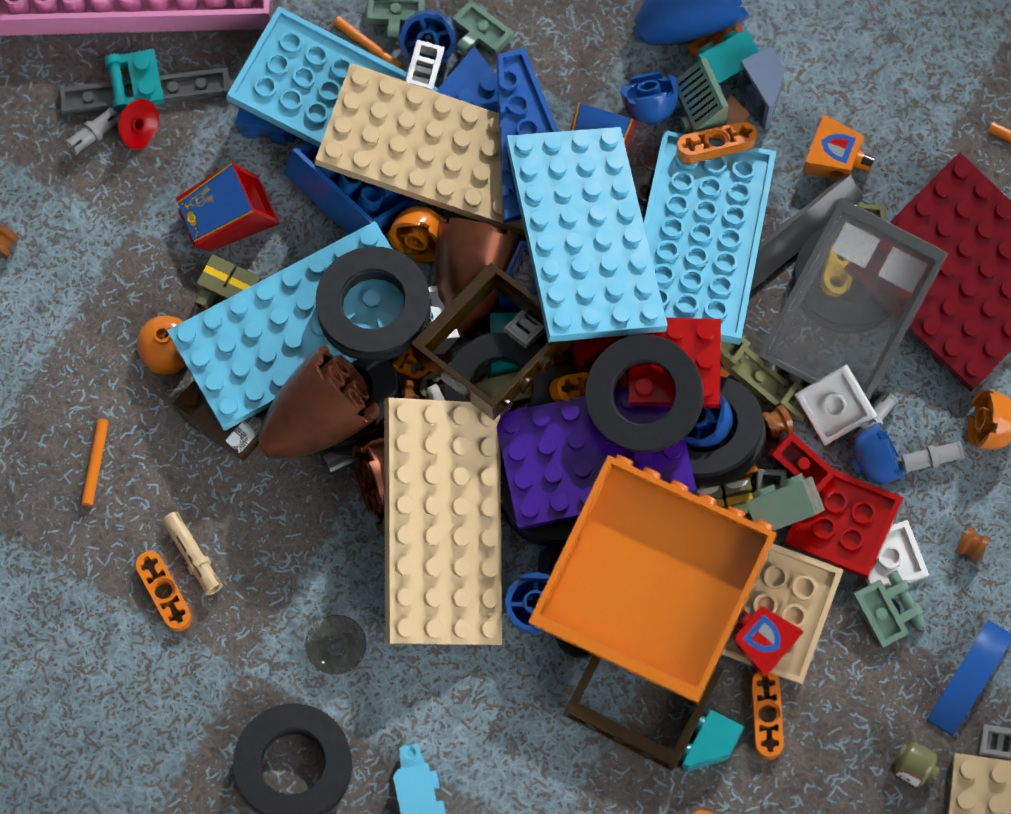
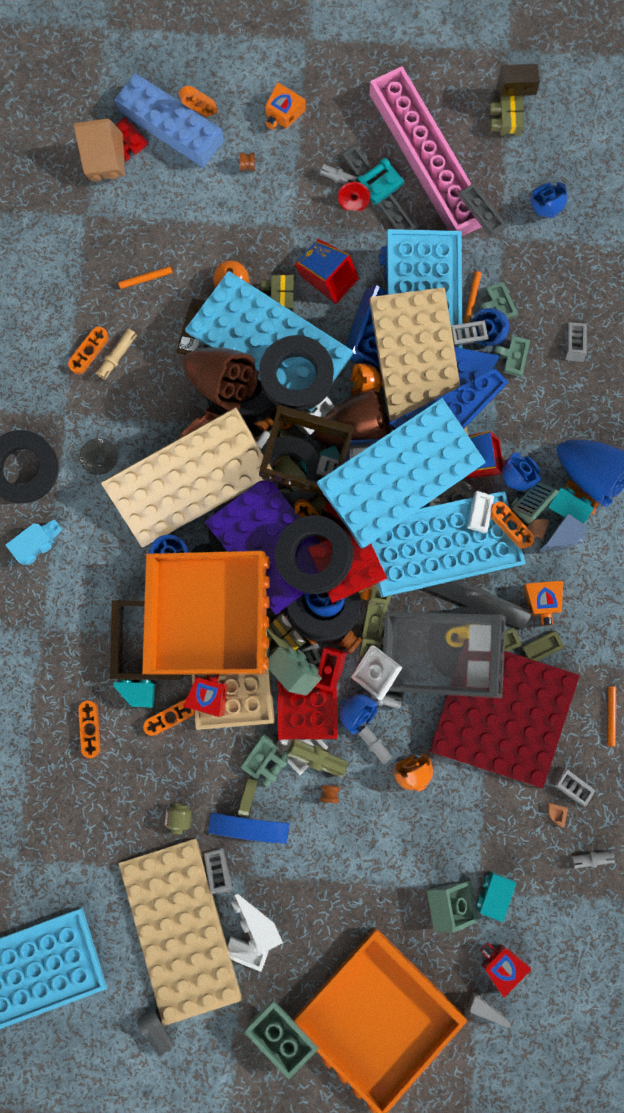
camera: 65 degrees right, 10 degrees up
(680, 170) = (480, 512): none -> white tile
(897, 183) = (543, 646): none -> olive tile
(916, 536) = (317, 757): none -> olive piece
(929, 656) = (247, 798): none -> olive beam

